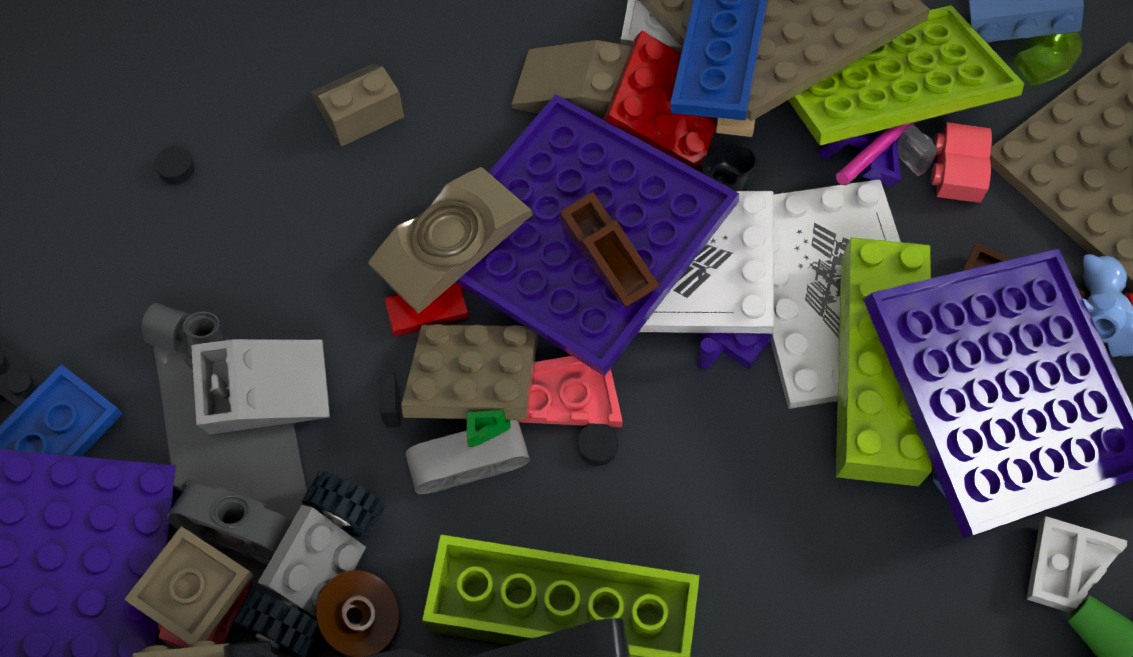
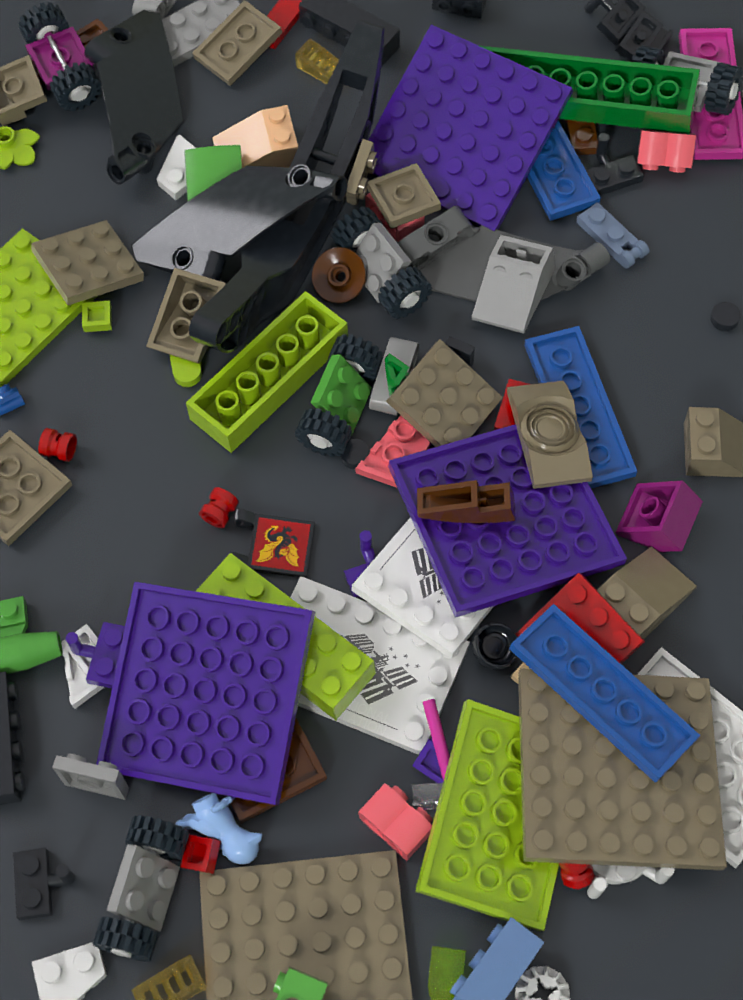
camera: 125 degrees right, 0 degrees up
(112, 332) = (612, 235): none -> sand blue plate
(338, 281) = (566, 358): none -> blue plate
(476, 107) = (660, 515): none -> magenta slope
(544, 488) = (340, 396): none -> plate
(771, 455) = (277, 543): none -> flag
(780, 545) = (218, 507): none -> red wheel
(1051, 536) = (103, 655): none -> dark purple plate

